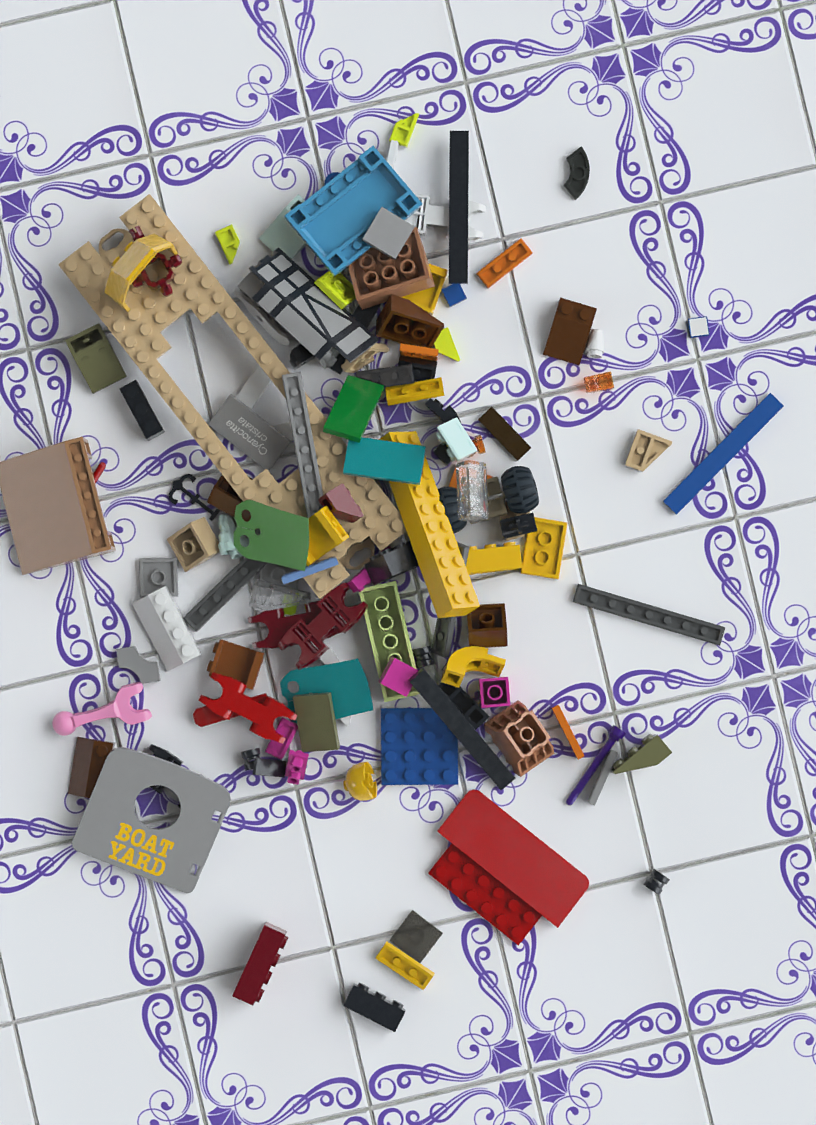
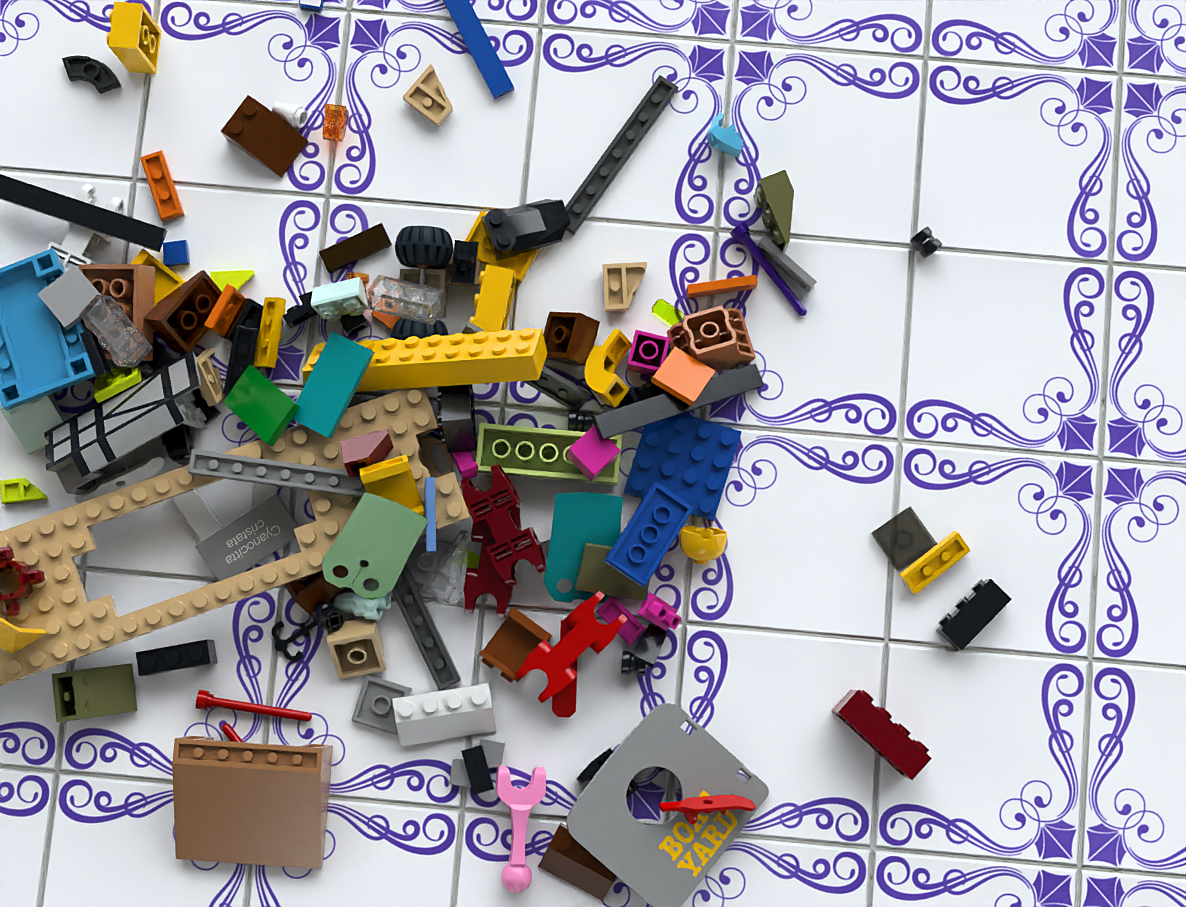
camera: 70 degrees left, 5 degrees down
(117, 444) = (206, 700): none -> red piece
(133, 667) = (477, 769): none -> black piece
(159, 838) = (707, 804): none -> piece
(210, 516) = (328, 616): none -> black wheel
(349, 269) = (96, 355): none -> black tile
(352, 739) = (648, 534): none -> blue tile
(372, 278) = (115, 331): none -> clear brick
(482, 725) = (683, 376): none -> tile
(505, 869) = (857, 410): red slope -> none
(534, 695) = (667, 312): none -> clear neon green piece
(544, 652) = (621, 284): none -> tan wing
(564, 563) = (525, 227): none -> black slope
(612, 203) = (134, 37): none -> yellow brick
(687, 697) = (724, 139): none -> medium azure hand

